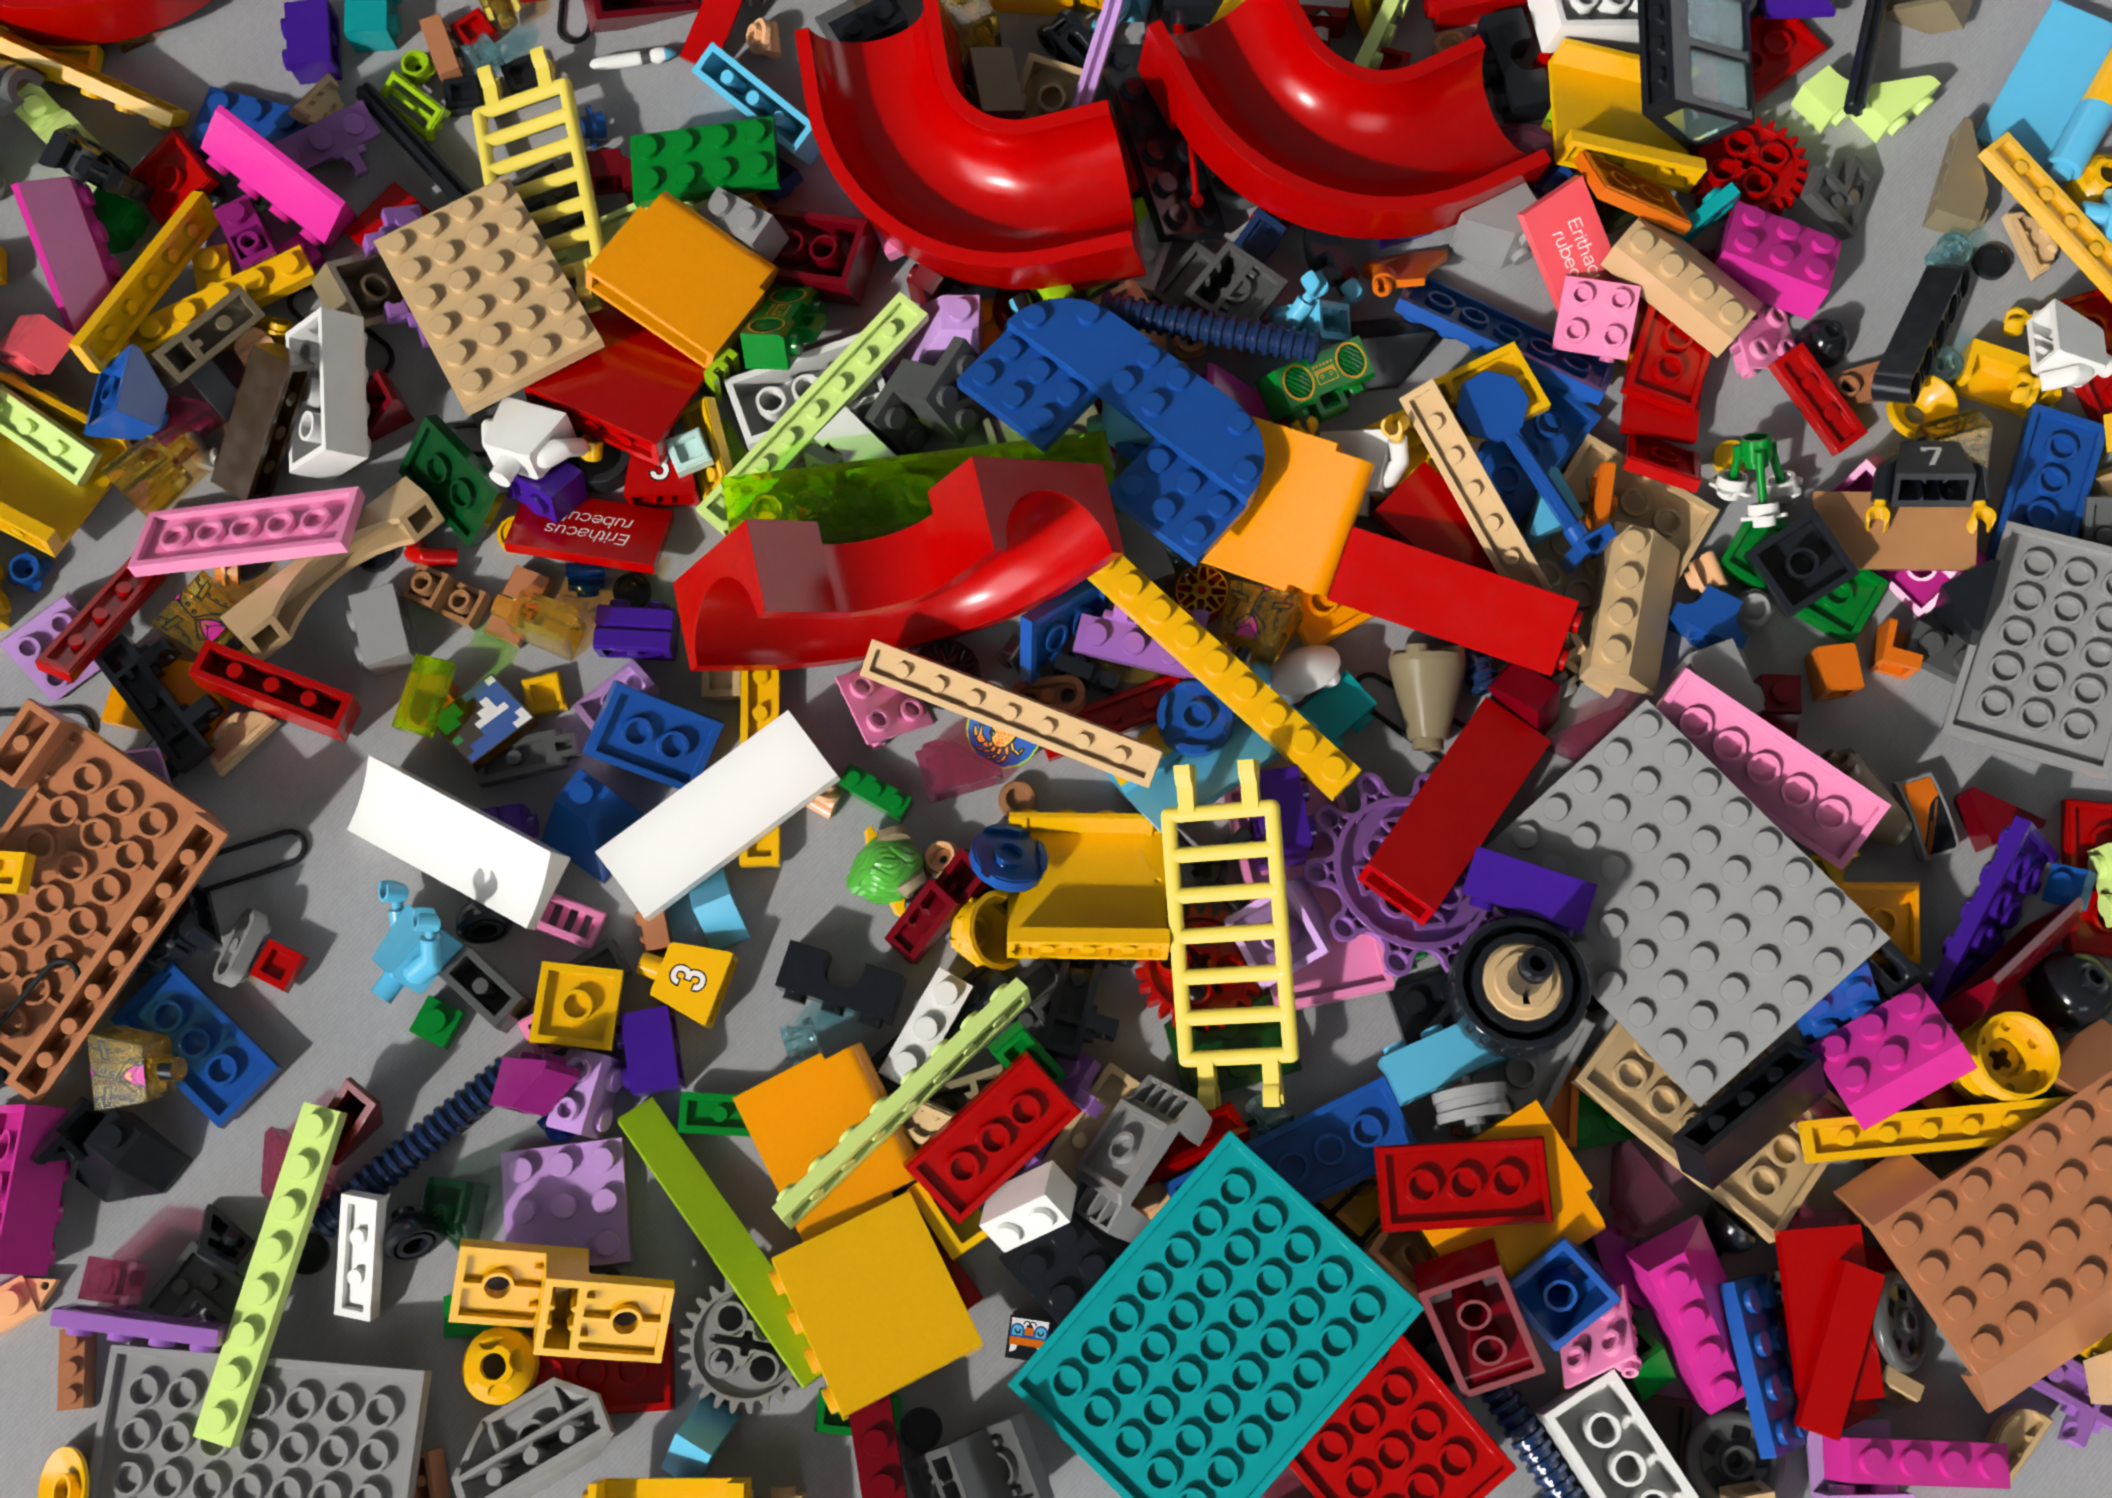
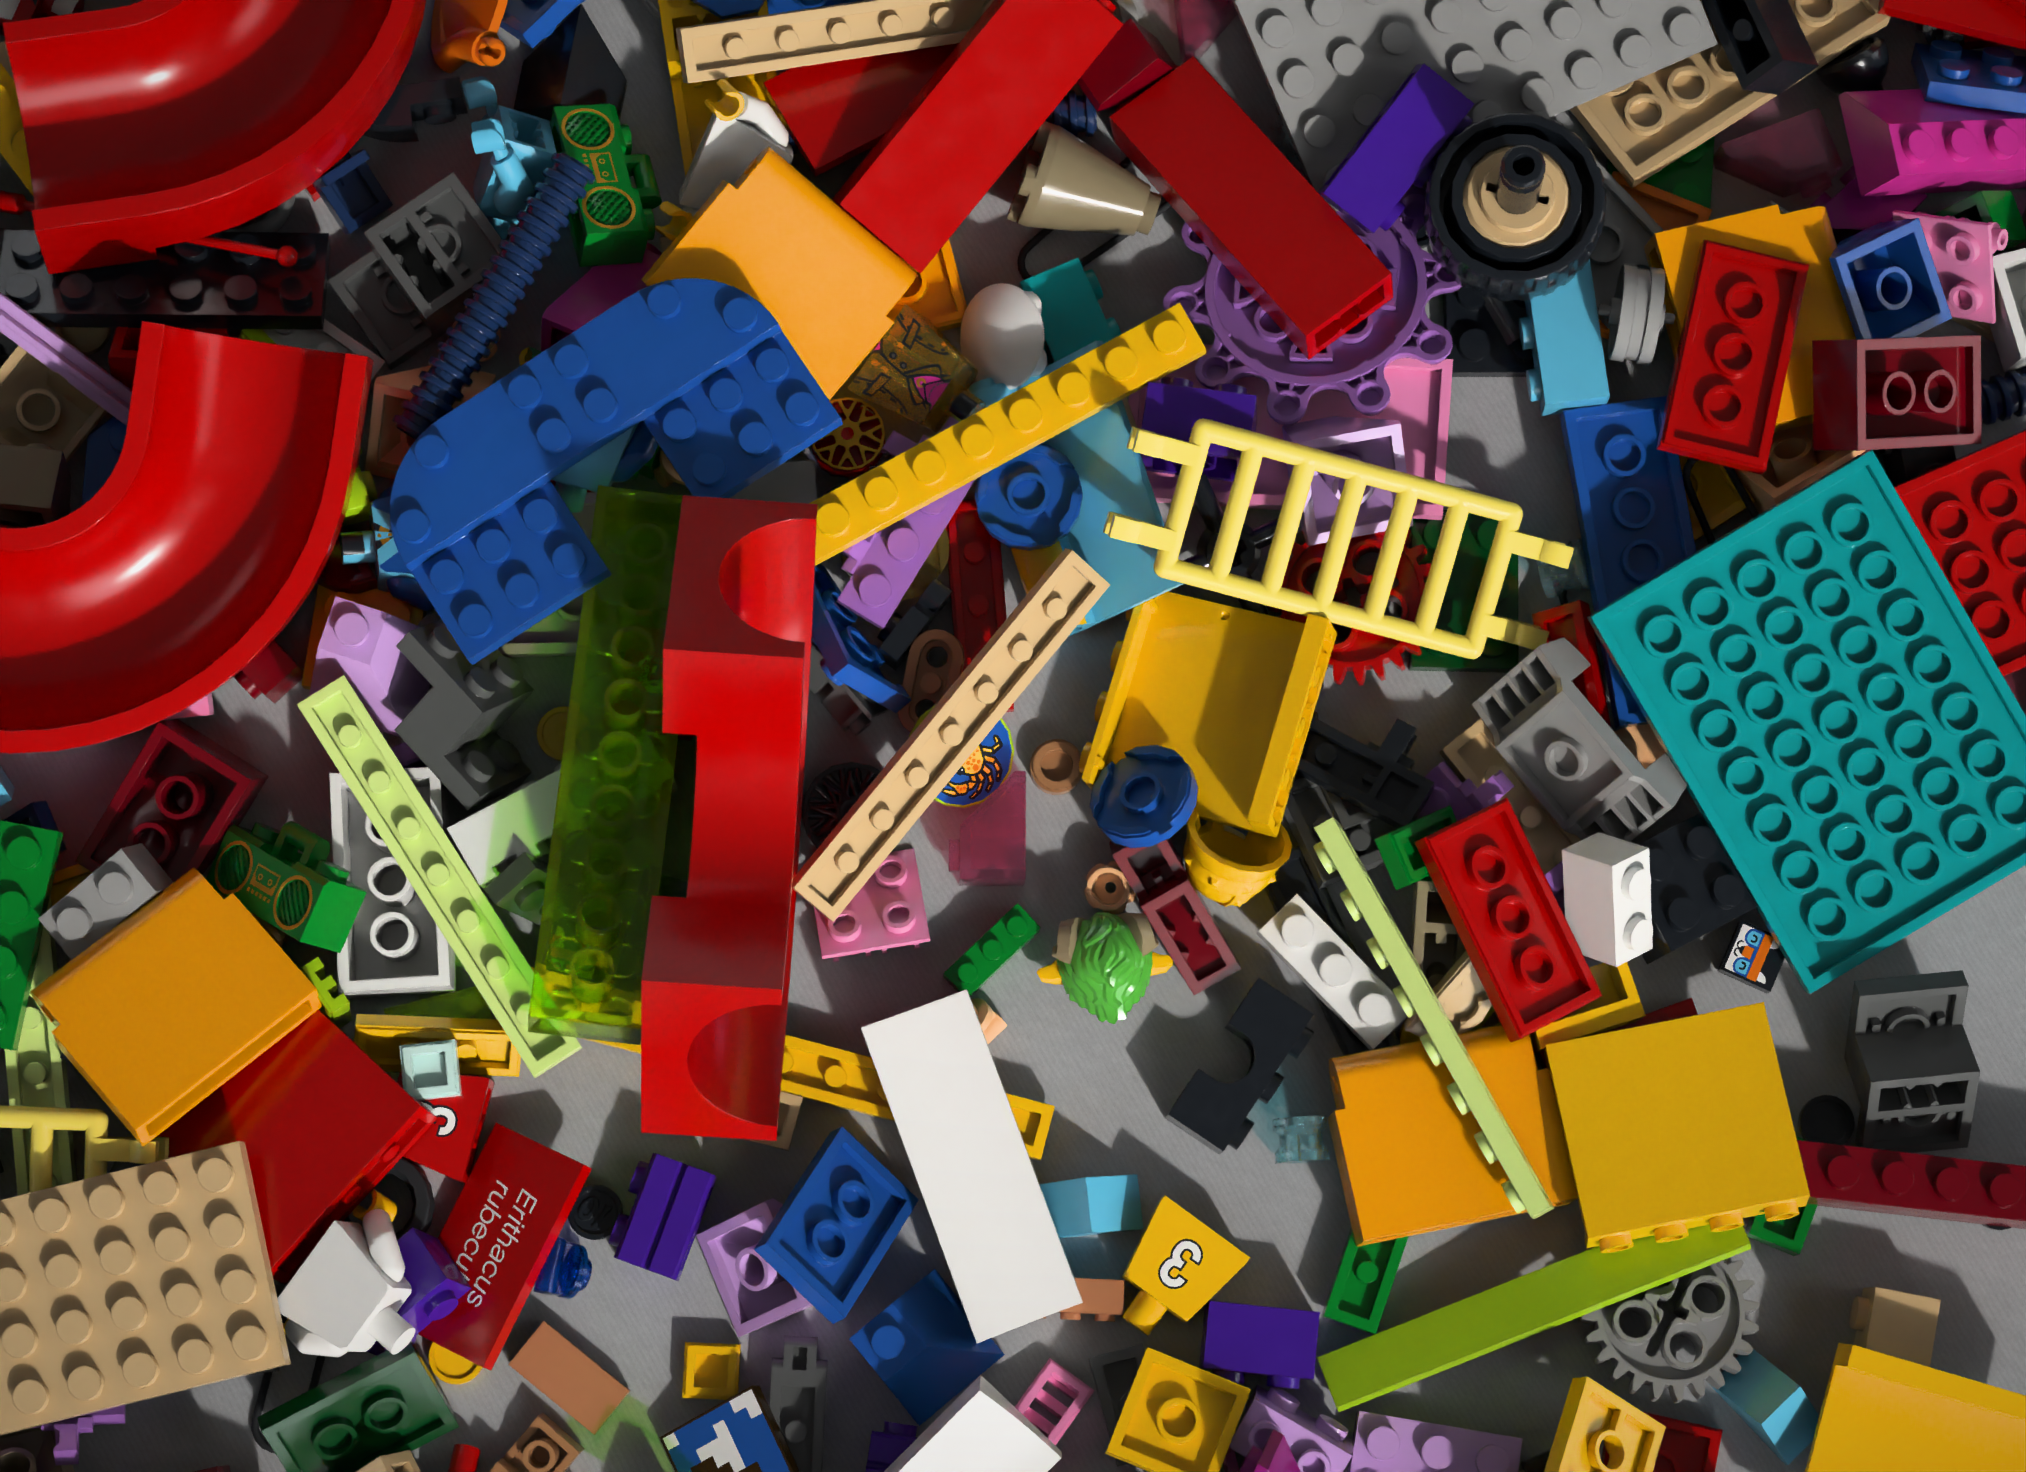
camera: 85 degrees left, 5 degrees up
(555, 626) = (633, 1323): clear yellow torso -> none

